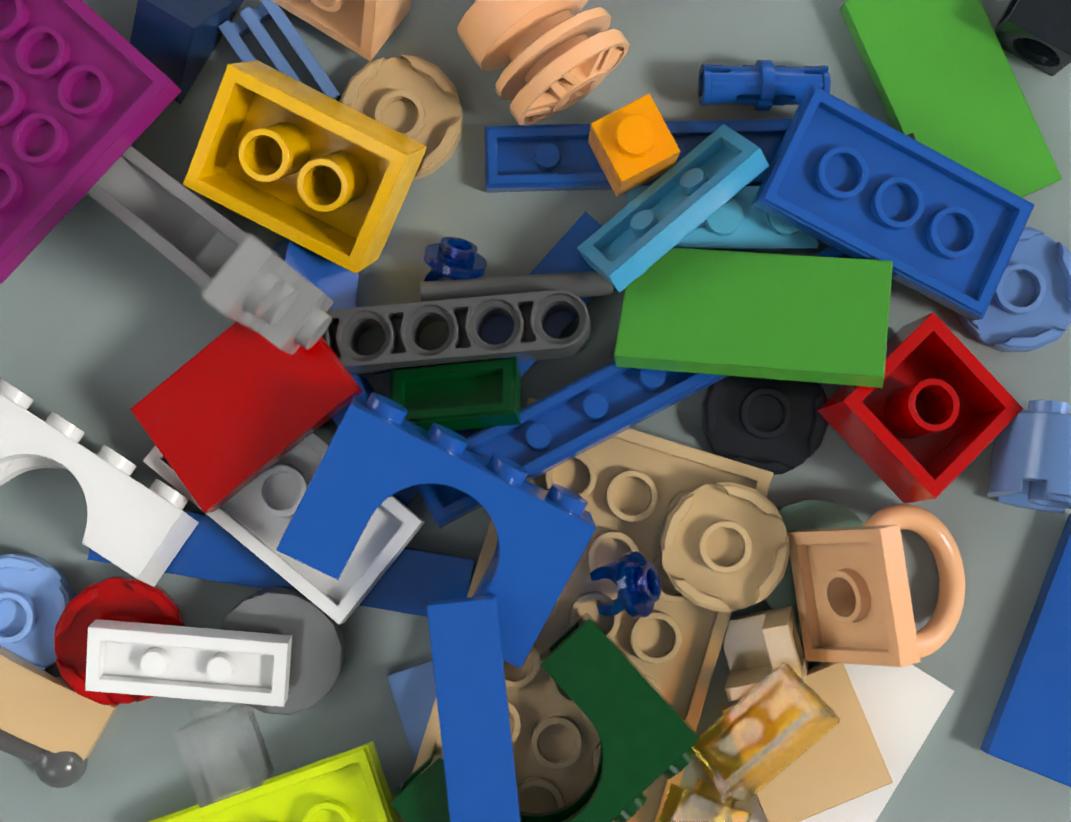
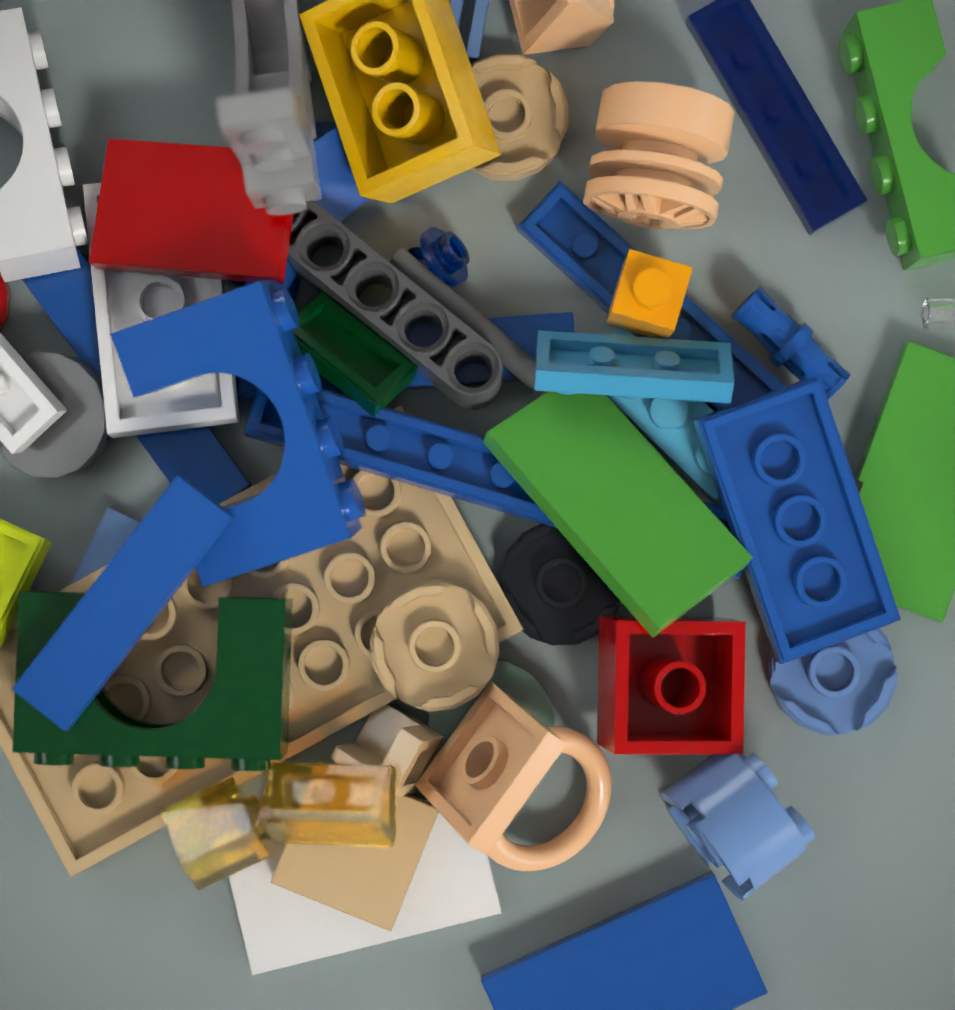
camera: 45 degrees right, 0 degrees up
(636, 585) = (344, 609): clear blue plate -> none

